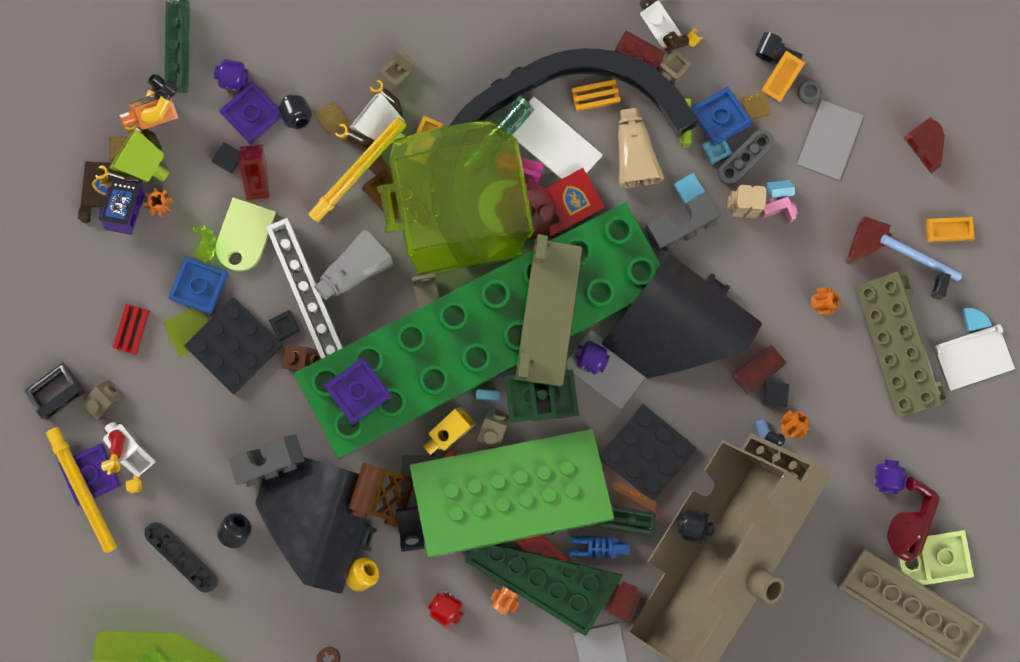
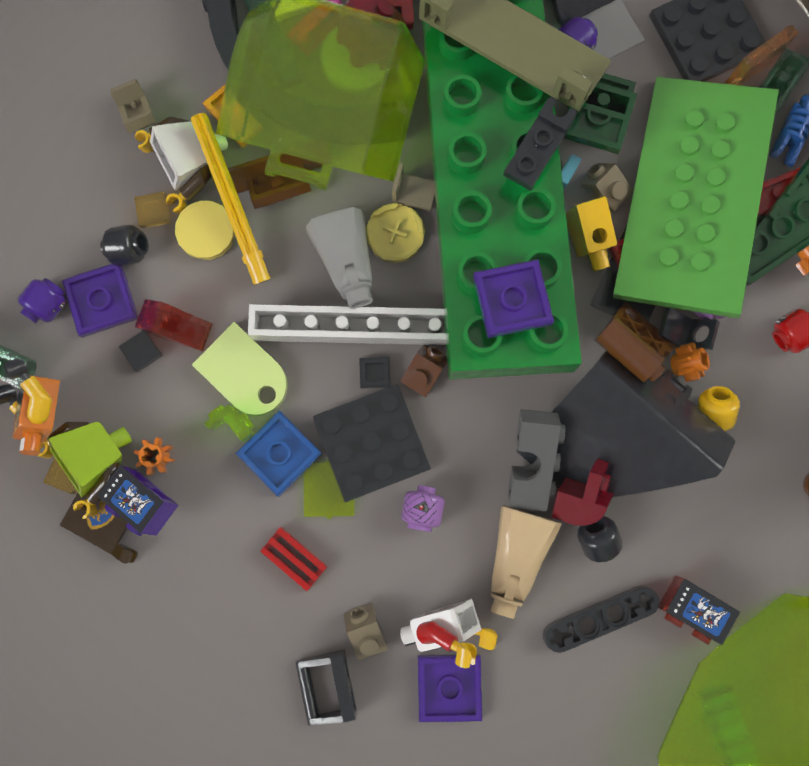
camera: 60 degrees left, 0 degrees up
(61, 449) = (466, 707): yellow axle -> none
(199, 481) = (519, 556): none -> tan piece
(202, 400) = (422, 509): none -> medium lavender head
(214, 621) = (699, 610): none -> brick
(255, 507) = (581, 502): none -> dark red brick
(331, 160) = (204, 230): none -> light yellow tile
(387, 541) = (690, 362): none -> orange gear
(391, 293) = (395, 233): none -> light yellow tile
(475, 362) = (539, 145): none -> black plate

